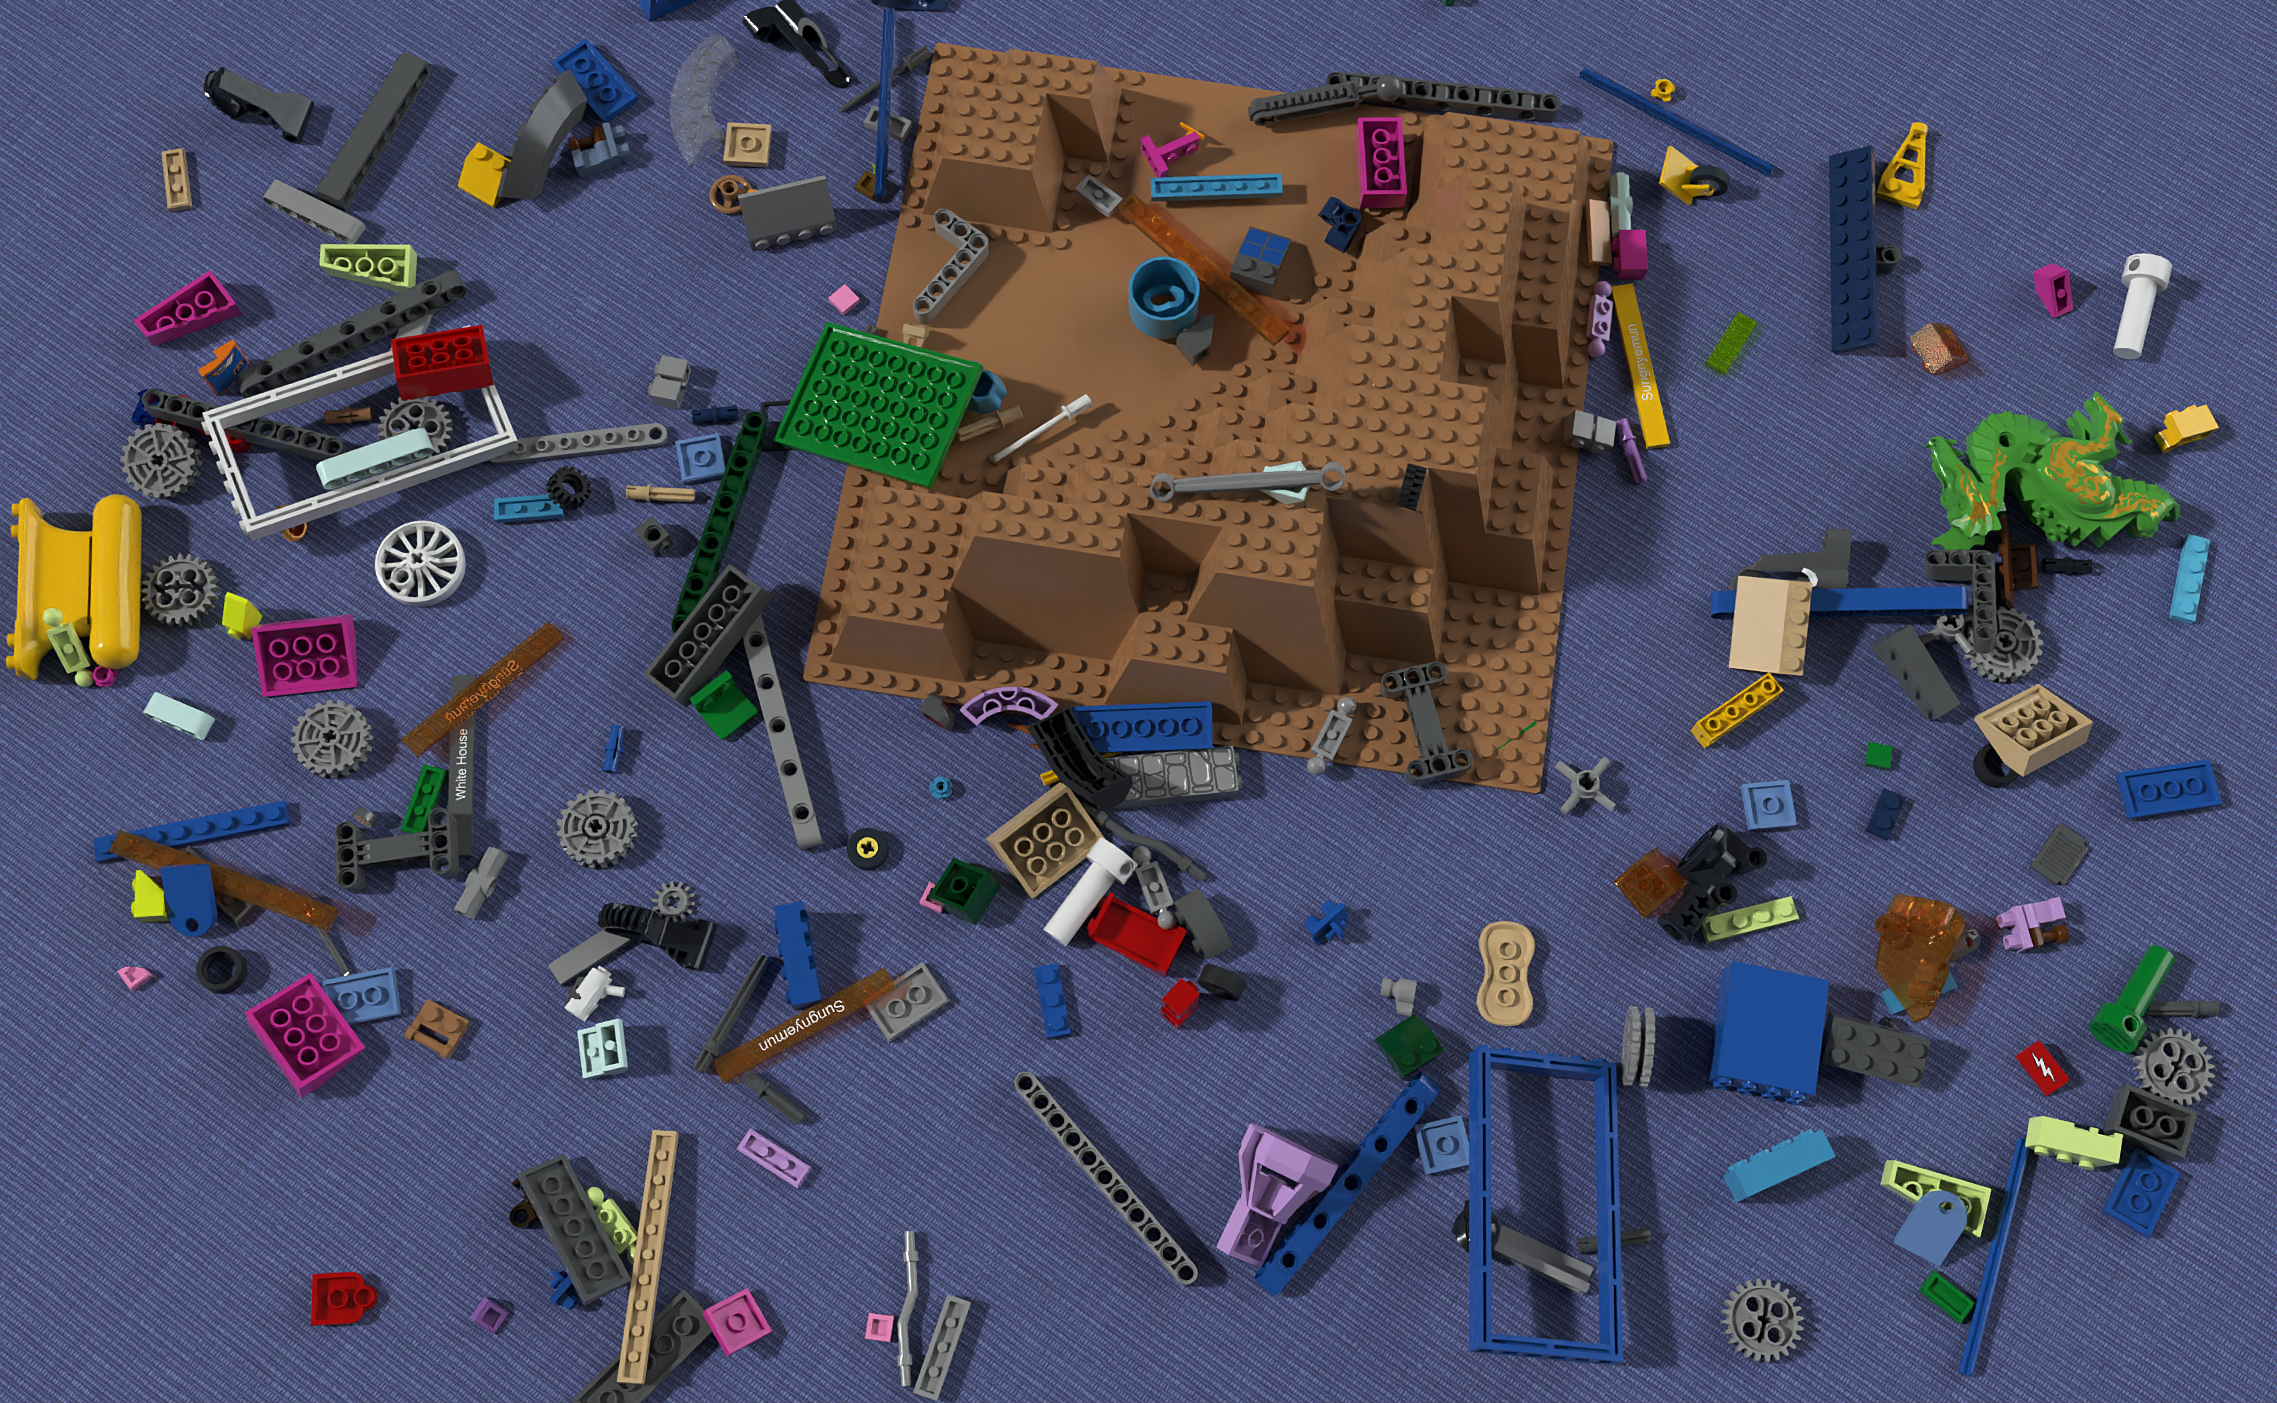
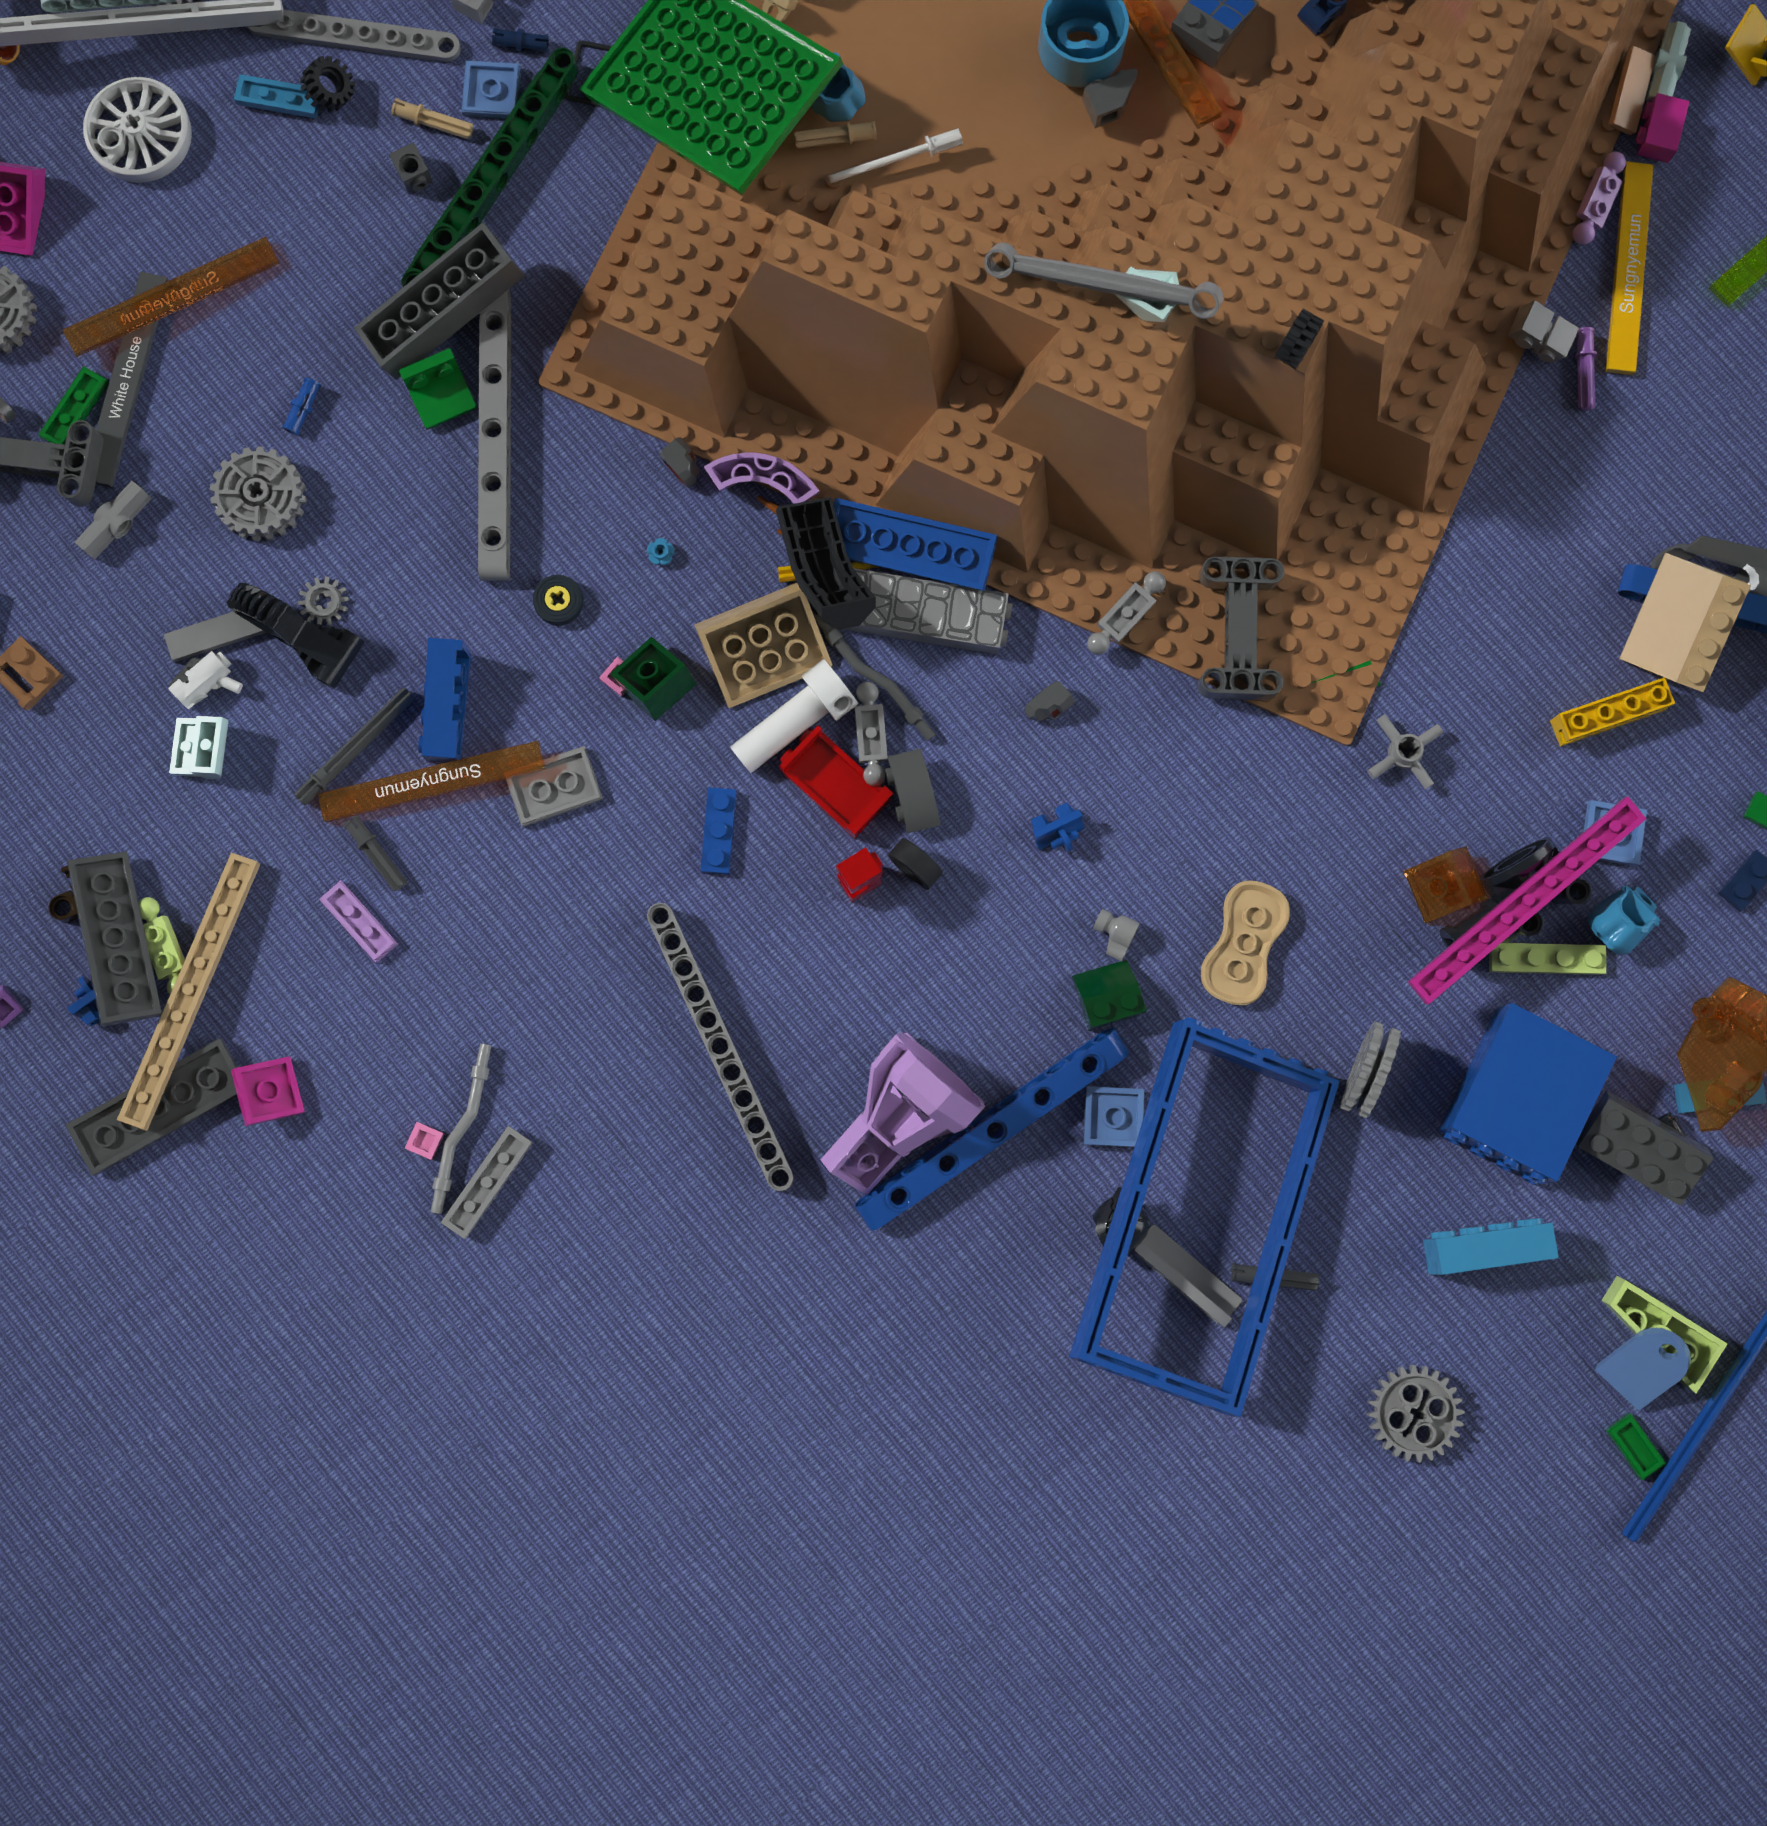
camera: 15 degrees right, 10 degrees up
(1291, 823) = (1049, 703): none -> dark grey rock
(1718, 876) = (1526, 900): none -> dark pink plate
(1799, 871) = (1623, 919): none -> dark azure piece

